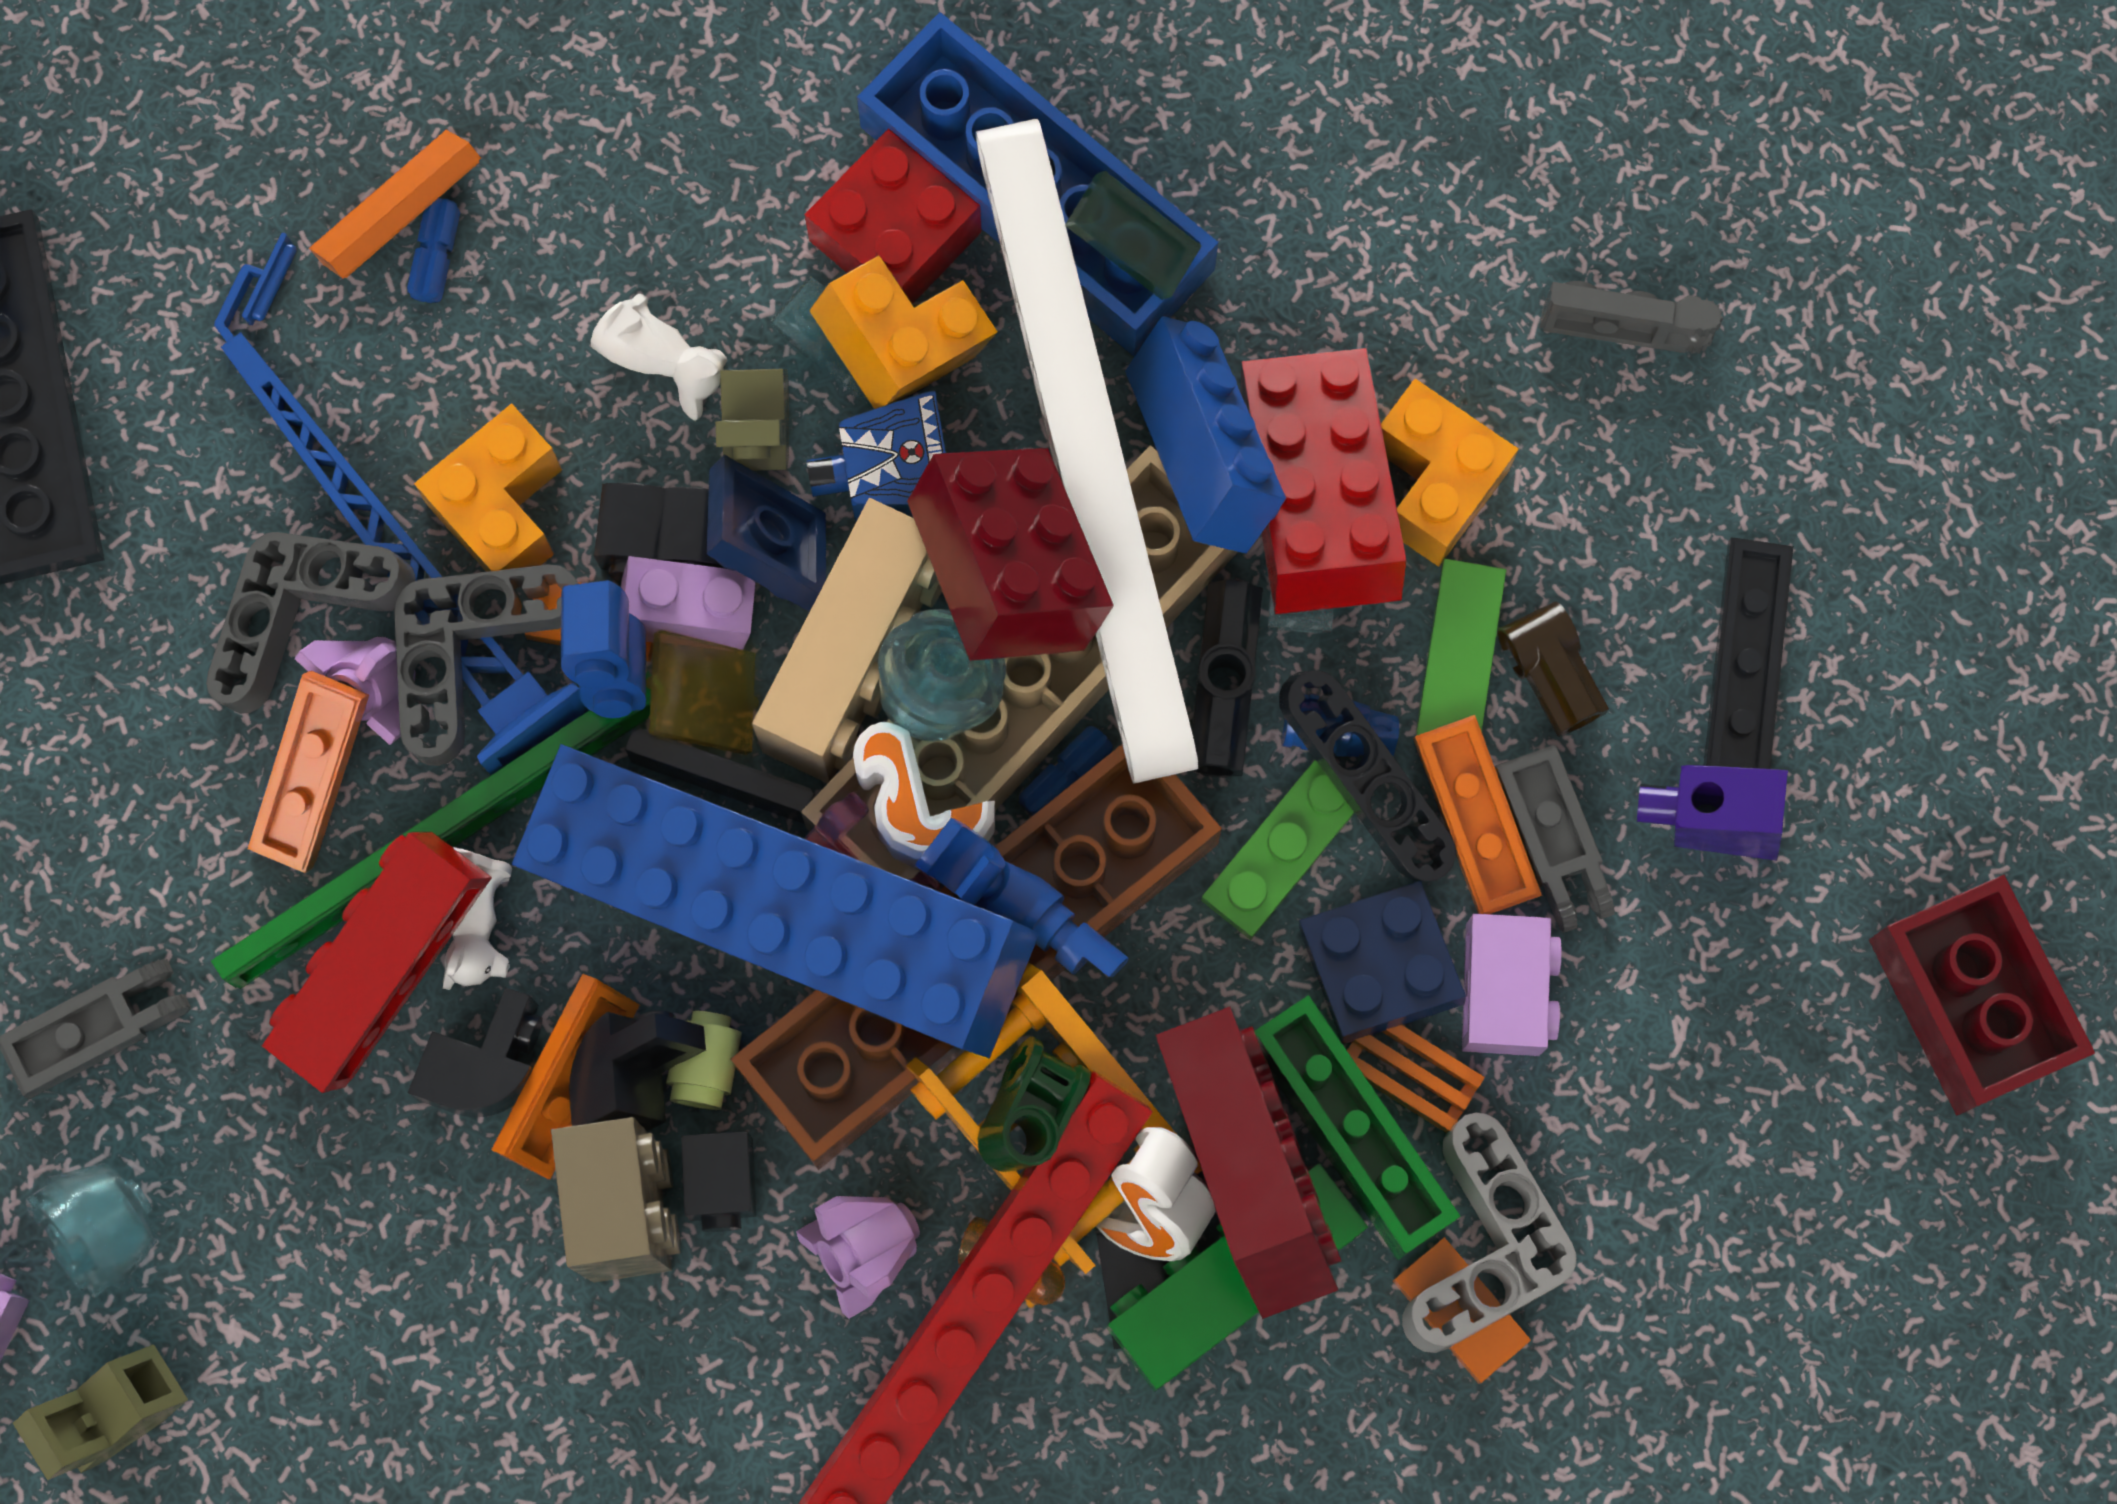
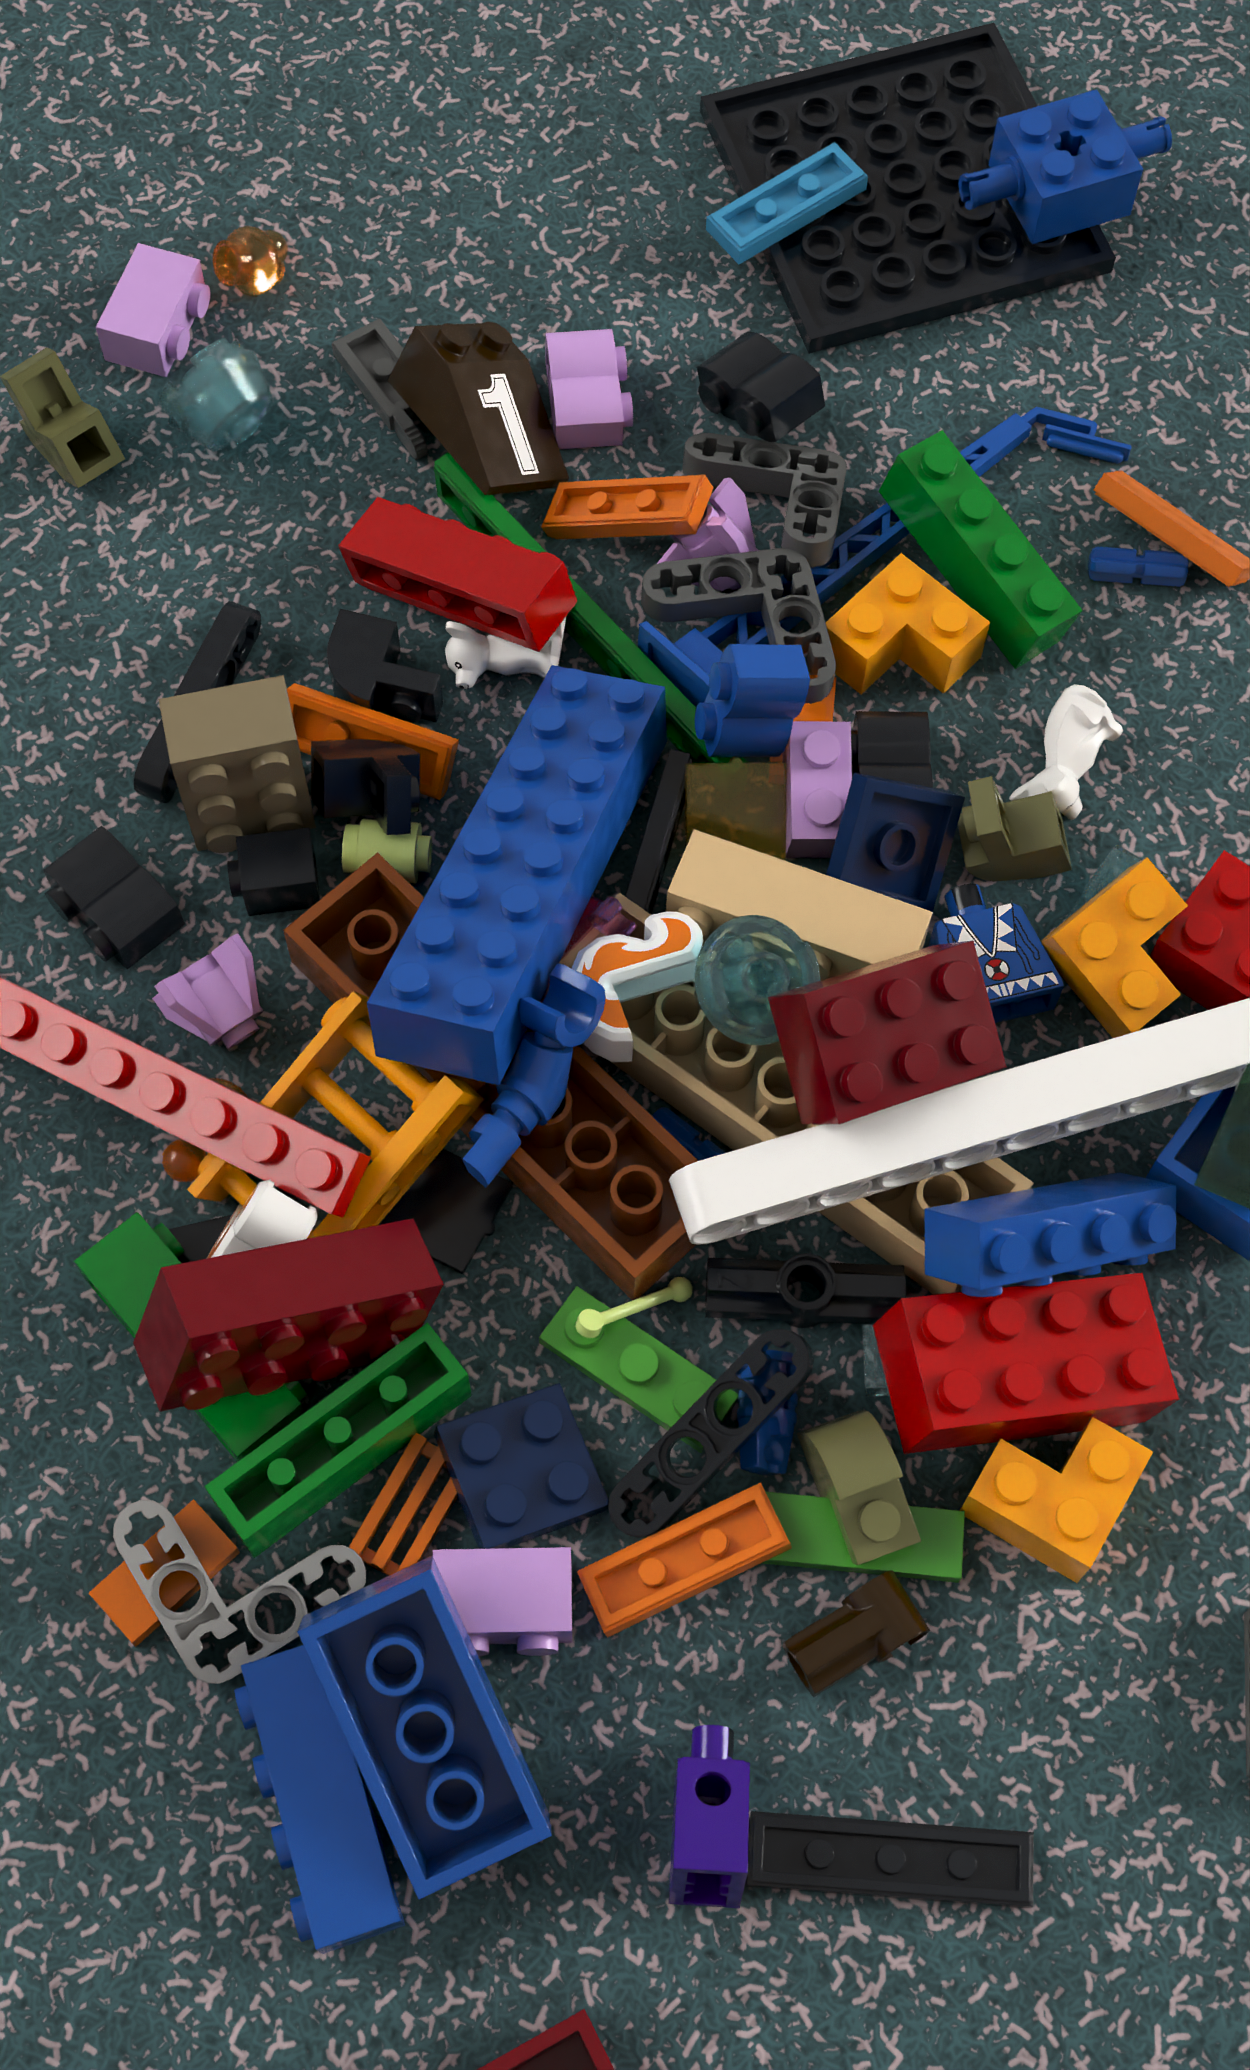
camera: 85 degrees right, 10 degrees down
(127, 808) = (585, 388): none -> lavender brick
(153, 922) = (481, 405): none -> dark brown slope
(158, 614) = (760, 387): none -> black brick
(411, 404) = (979, 548): none -> green brick
(493, 1261) = (213, 667): none -> black beam
(732, 1358) = (113, 898): none -> black brick
(1038, 1097) = (334, 1102): dark green piece -> none
(1117, 1013) = (451, 1209): none -> black piece
(1250, 879) = (591, 1321): none -> yellowish green hinge
(1416, 643) = (861, 1478): none -> olive brick
(1554, 832) = (675, 1643): dark grey hinge -> none
(1637, 1053) = (425, 1727): none -> blue brick
(1682, 1161) = (322, 1805): none -> blue brick

